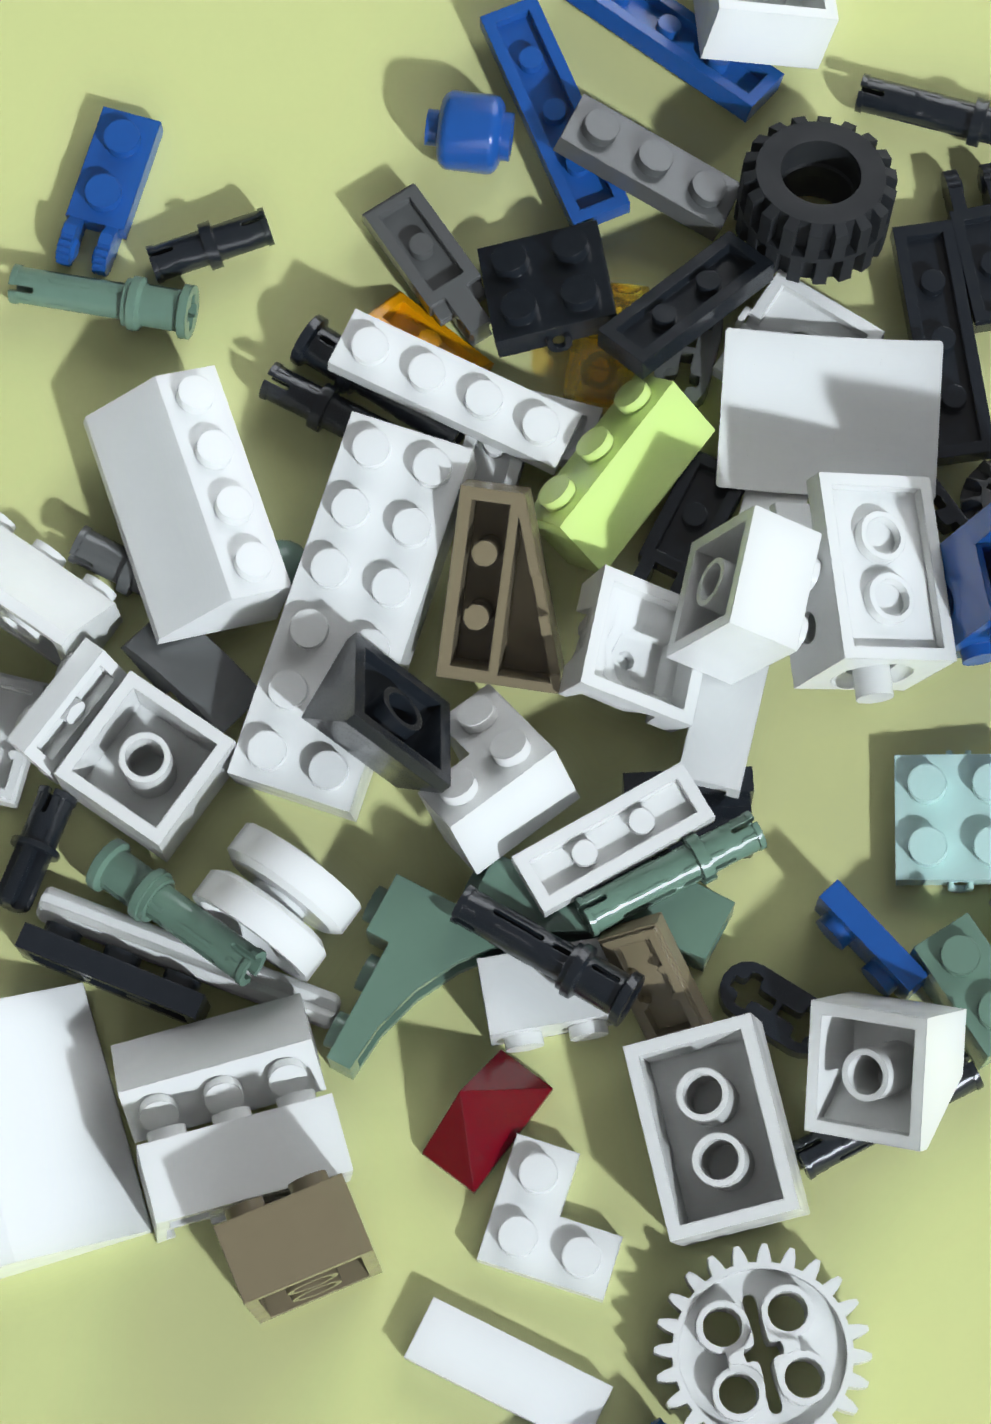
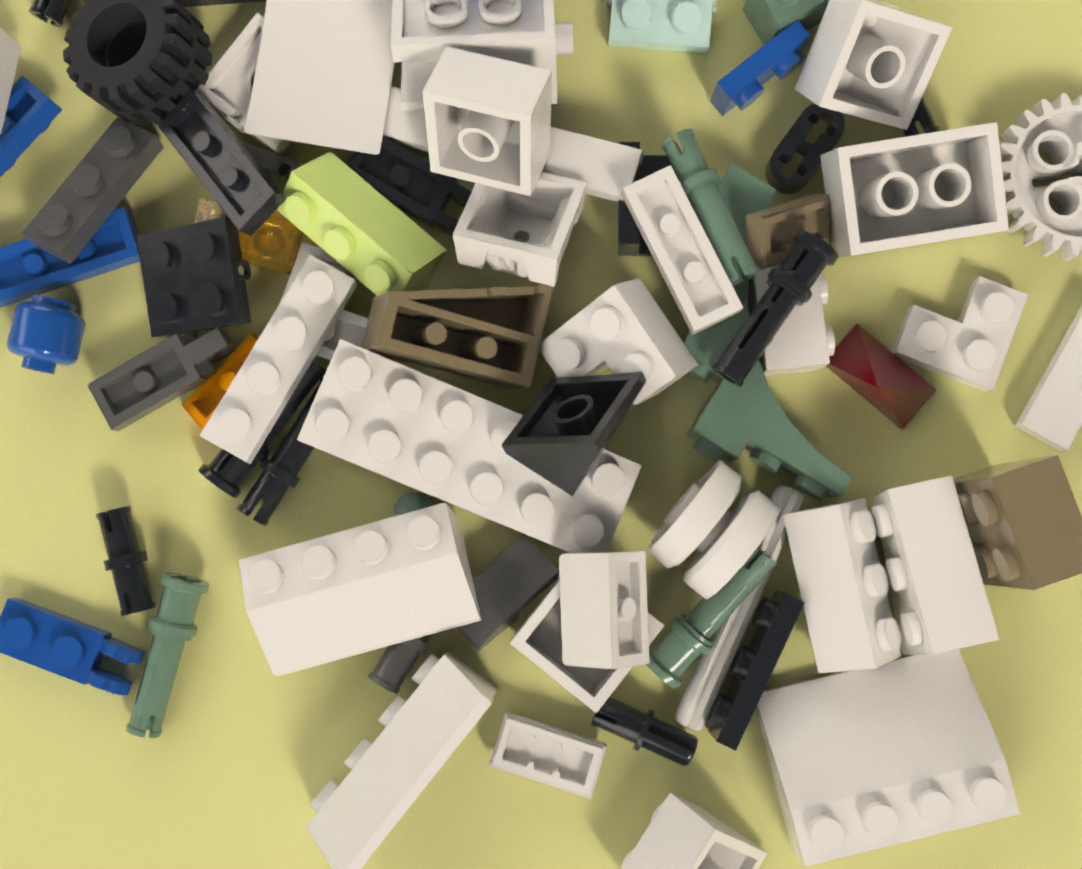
camera: 85 degrees left, 10 degrees up
(66, 707) = (547, 705): white plate -> none
(173, 770) = (604, 609): none -> white panel

